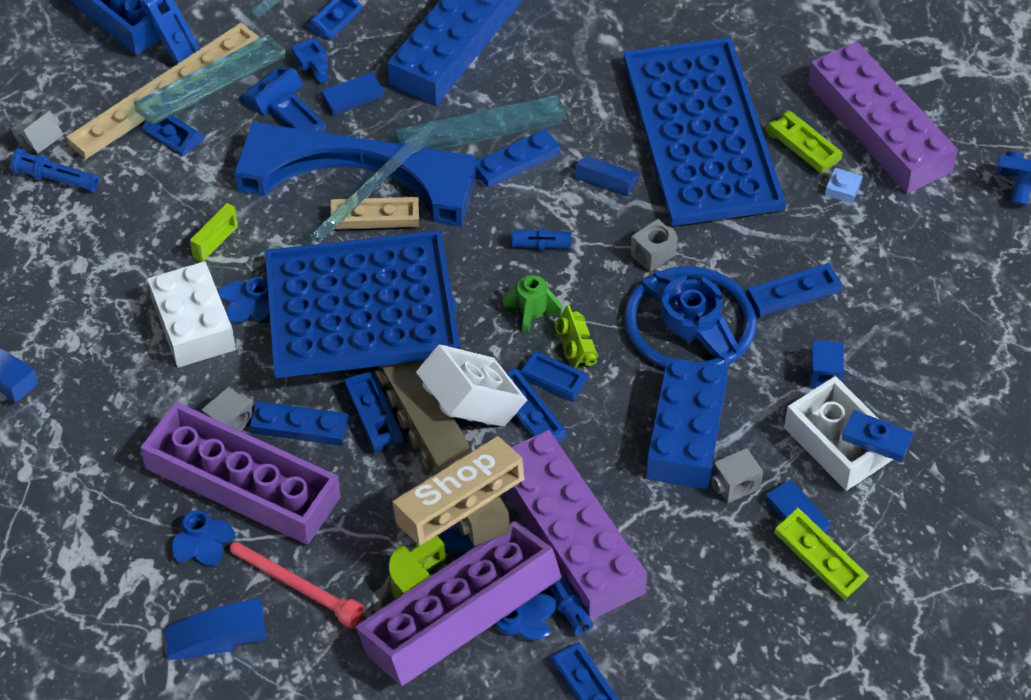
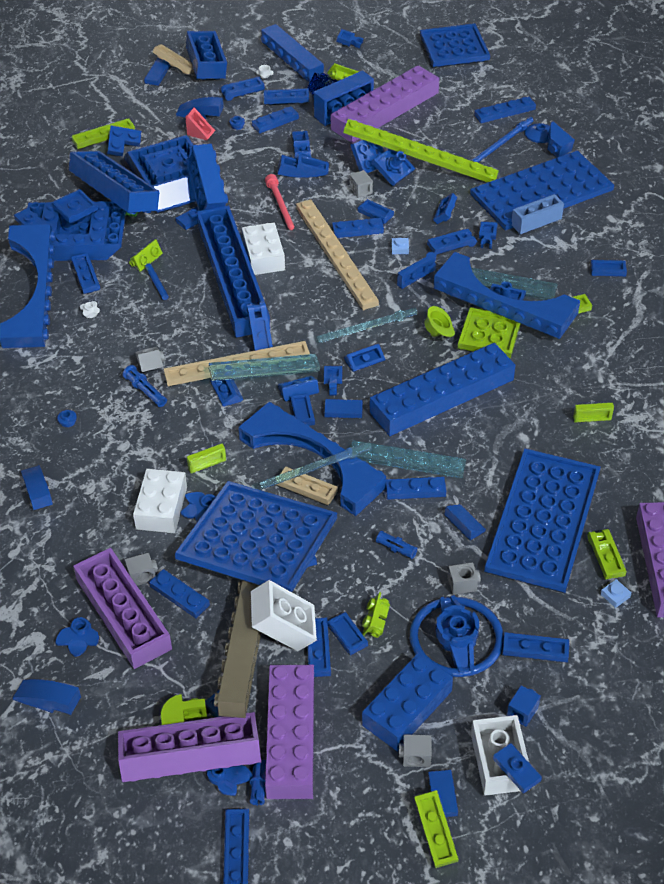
camera: 30 degrees right, 5 degrees down
(348, 611) = (126, 720): coral piece -> none
(373, 410) = (224, 605): blue plate -> none
(458, 490) = (222, 676): tan brick -> none
(532, 299) = (363, 579): bright green brick -> none

